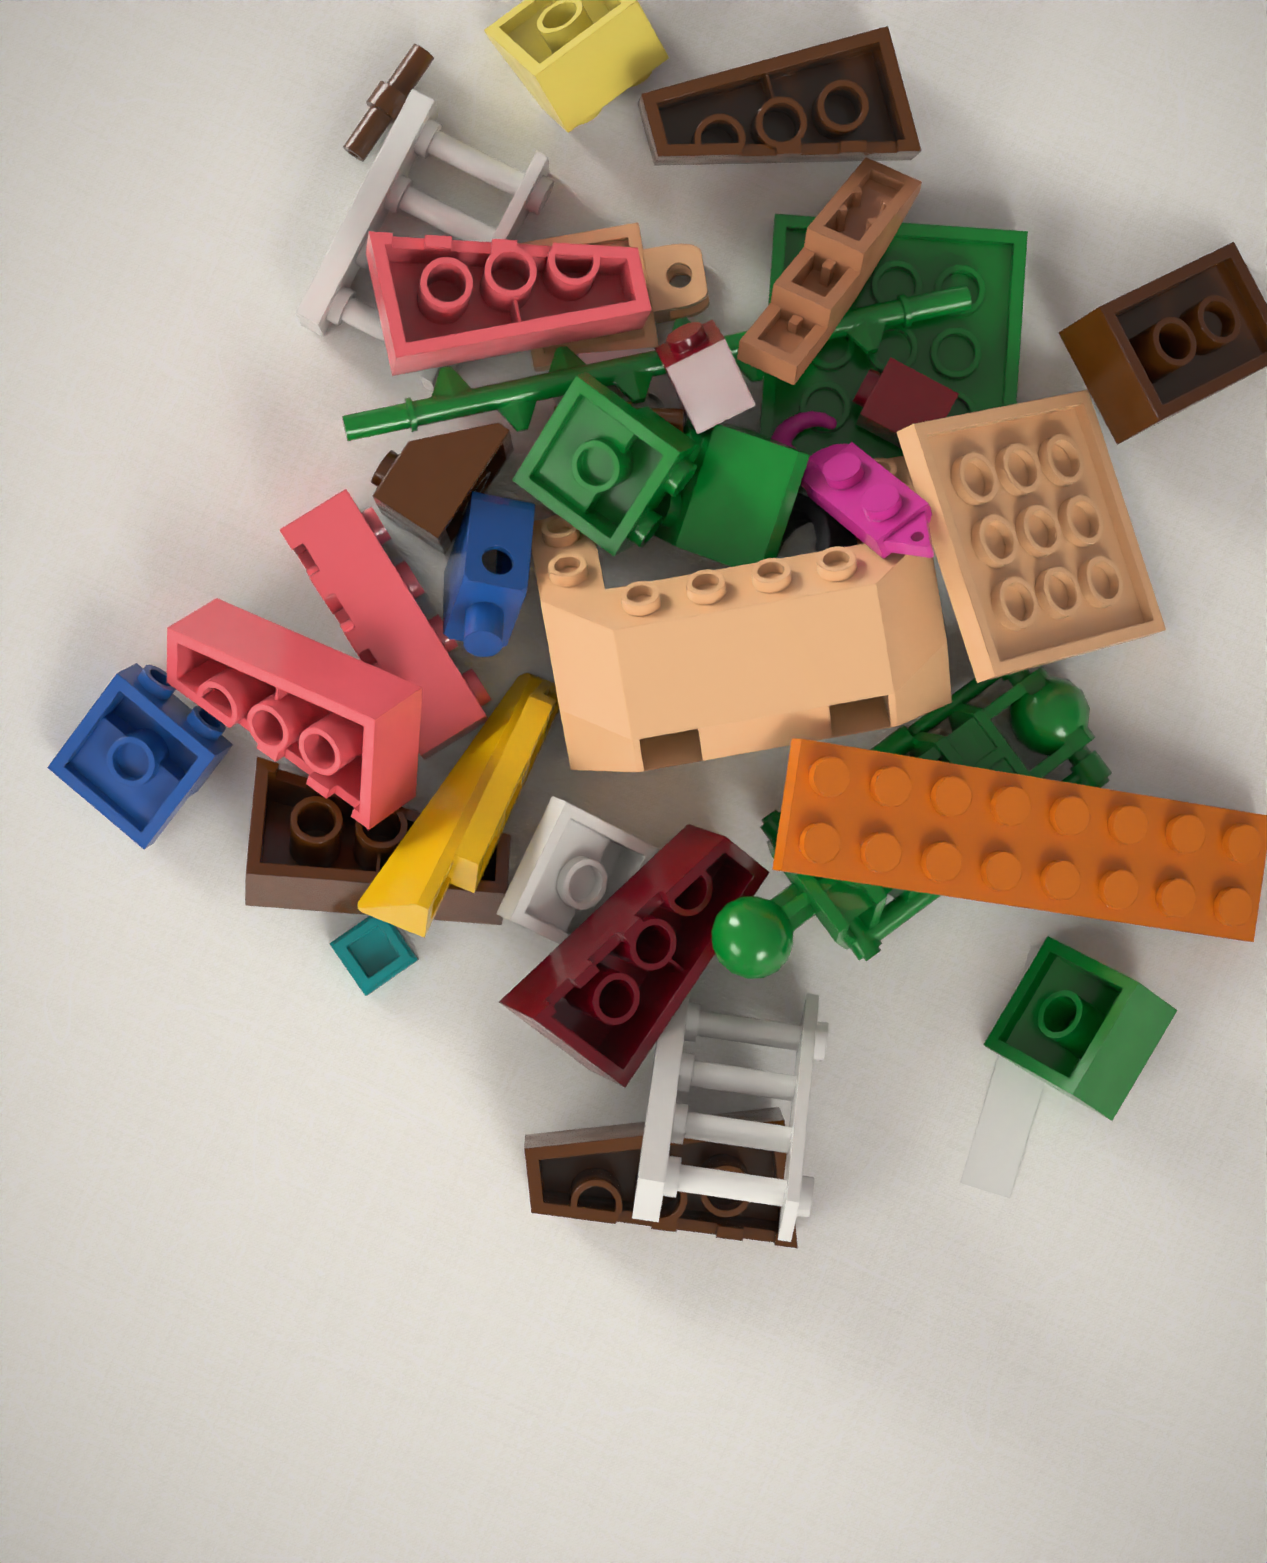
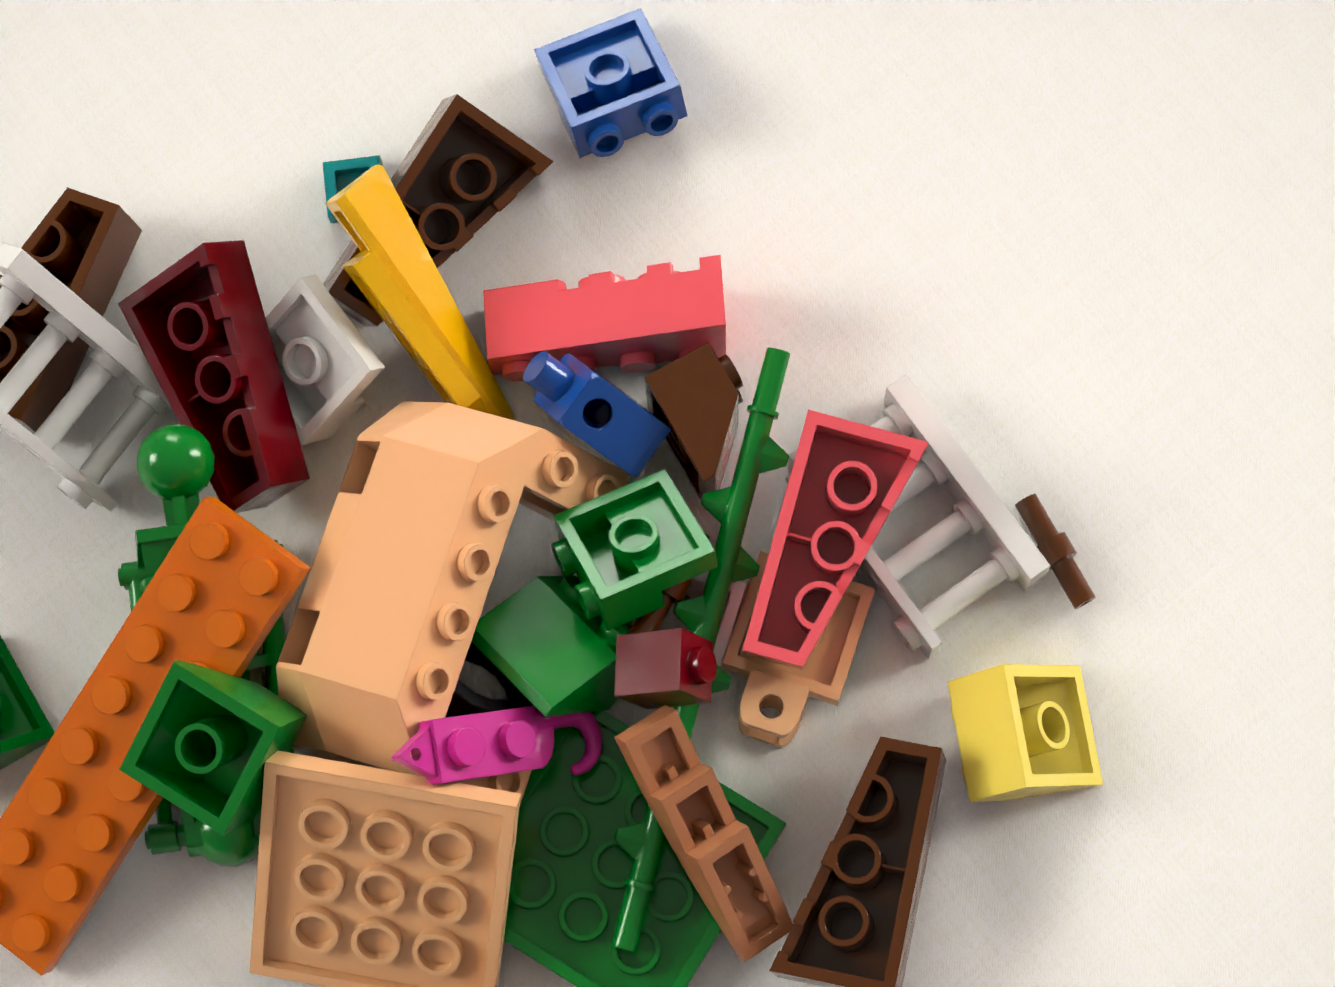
camera: 125 degrees right, 10 degrees down
(303, 702) = (575, 214): coral wedge -> none
(899, 400) = (556, 836): dark red brick -> none
(1000, 741) = (210, 743): none -> green slope

